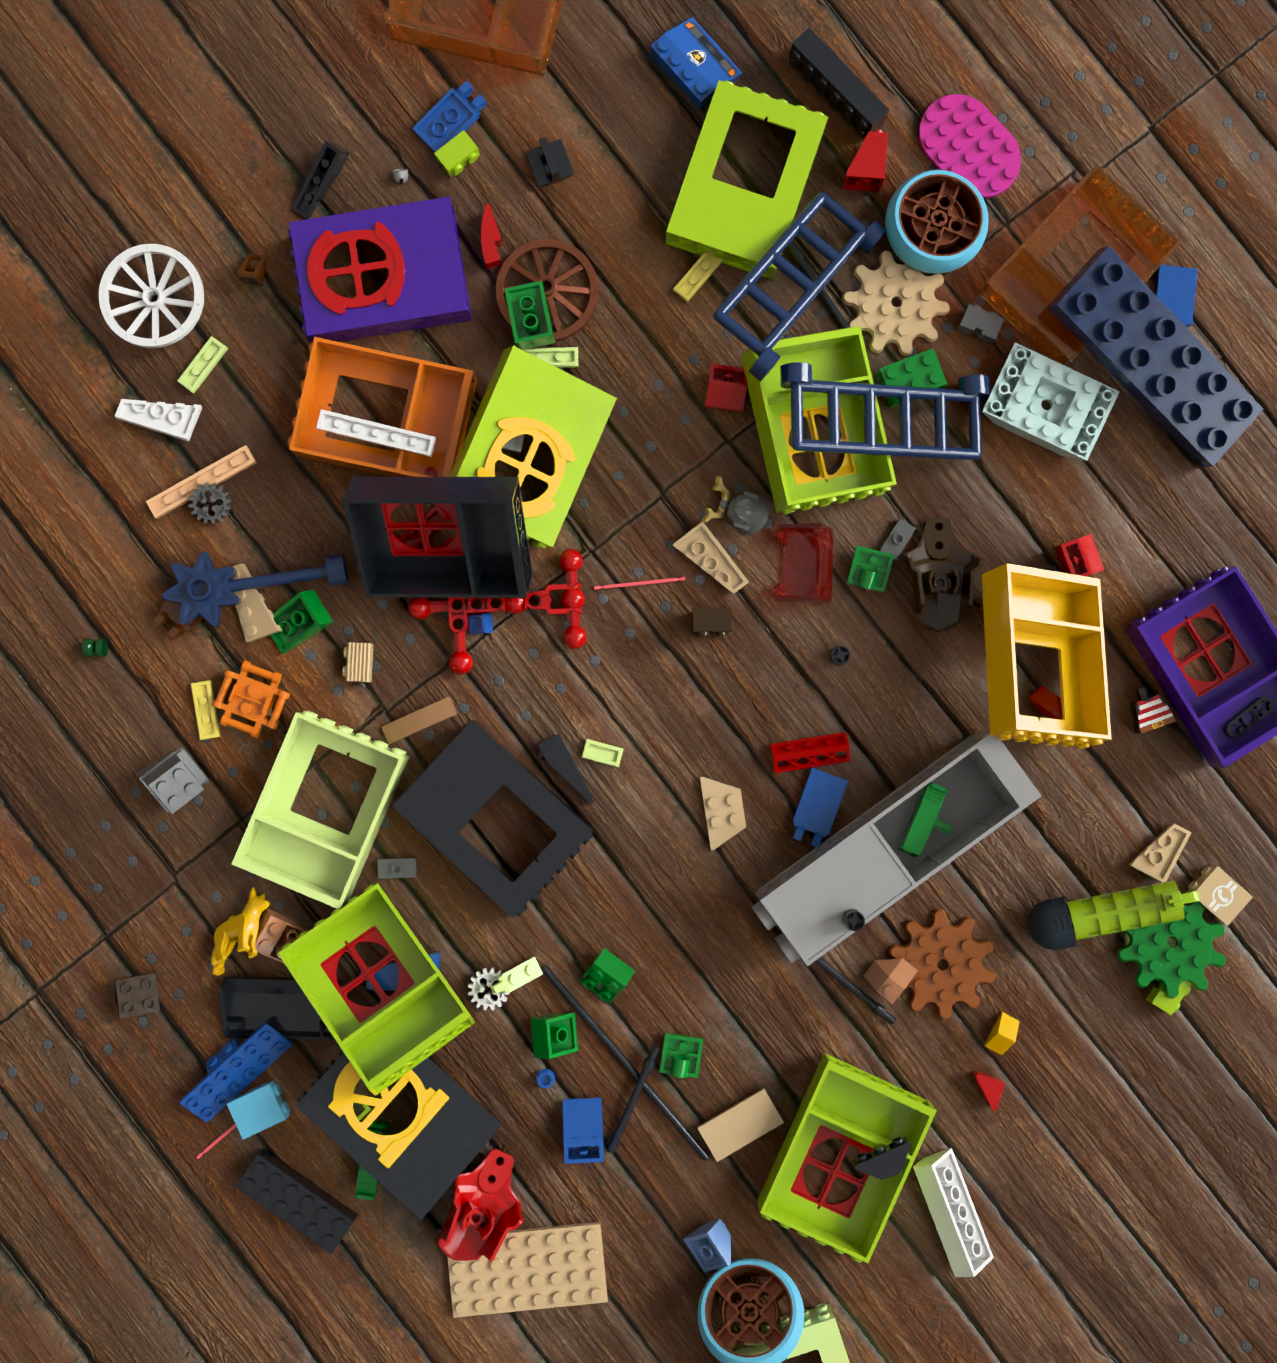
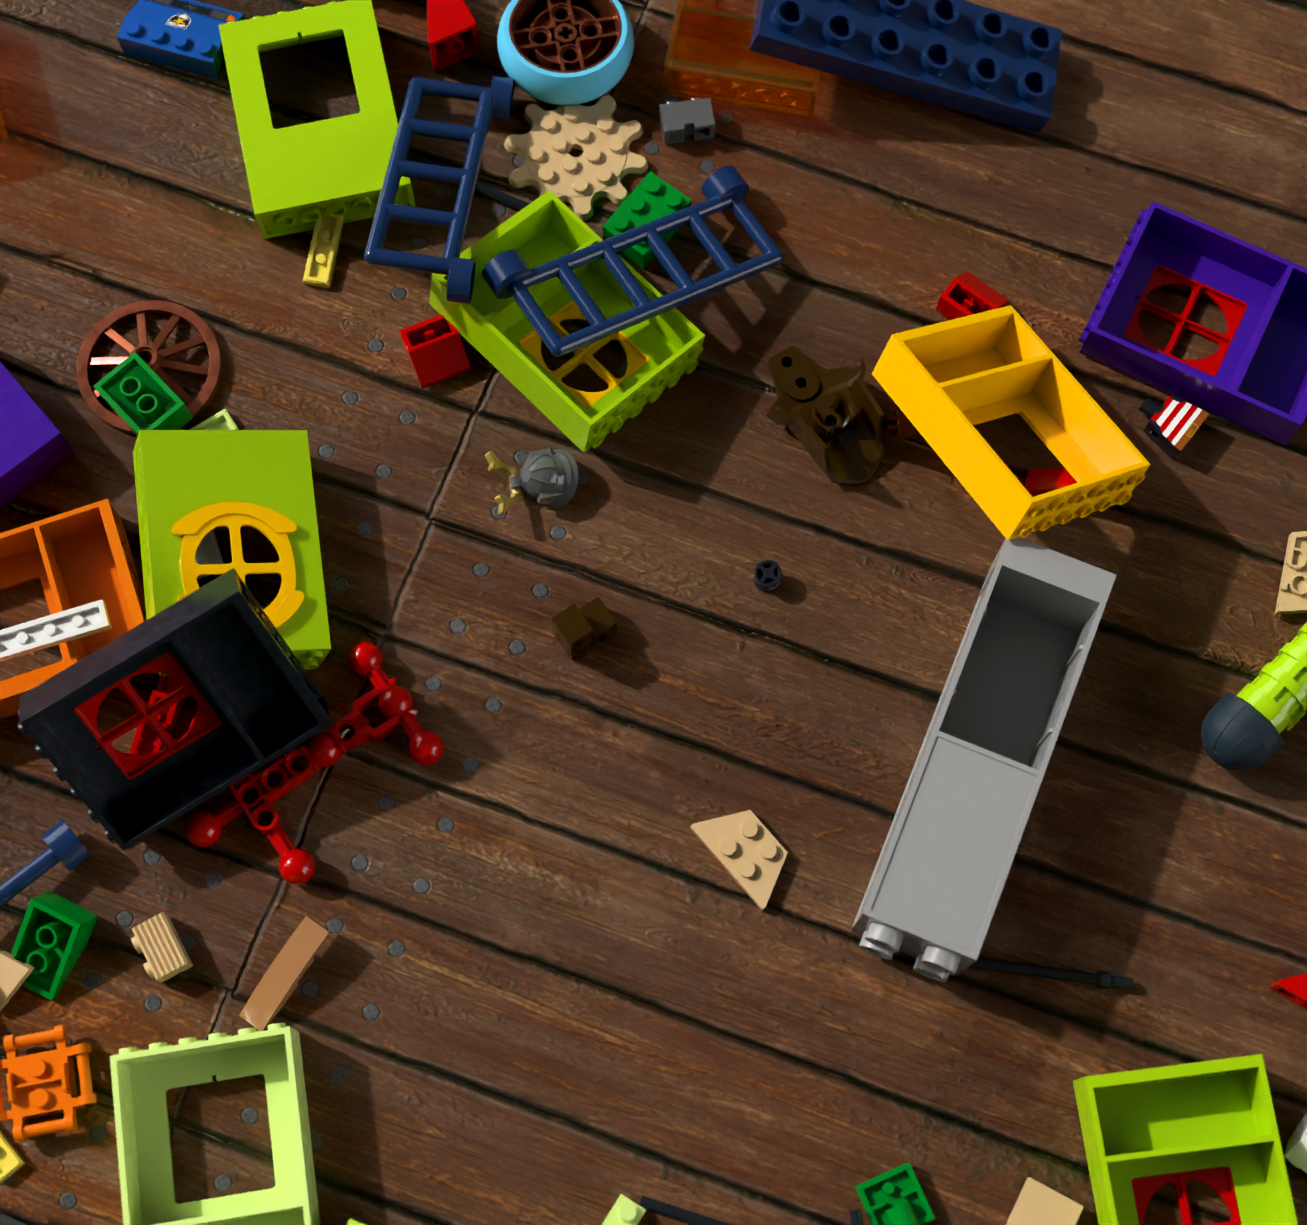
camera: 35 degrees left, 15 degrees down
(397, 868) = (366, 1190): dark grey plate -> none
(460, 785) = (385, 1024): black panel -> none
(480, 624) = (295, 805): blue slope -> none
(490, 239) = (46, 347): red slope -> none
(549, 162) = (69, 225): black bracket -> none
(560, 759) = (497, 911): black slope -> none
(602, 752) = (548, 872): yellowish green tile -> none
(607, 976) = (731, 1158): green slope -> none
(639, 583) = (468, 638): coral piece -> none
(708, 553) = (536, 553): tan wing -> none
(805, 563) = (655, 493): clear red windscreen -> none
(810, 749) = (806, 703): red fence -> none
(818, 805) = (859, 771): blue tile -> none
(857, 920) = (995, 856): black wheel -> none
(870, 568) = (738, 454): green plate -> none
(884, 1160) = (1243, 1158): black slope -> none
(890, 977) = (1089, 926): nougat slope -> none
(898, 538) = (748, 405): dark grey plate -> none
(924, 820) = (998, 702): green piece -> none
(963, 969) = (1121, 898): dark orange plate -> none
(1003, 1034) = (1274, 914): yellow slope -> none
(1076, 403) = (851, 139): light aqua slope -> none
(1256, 718) = (1283, 352): black beam -> none

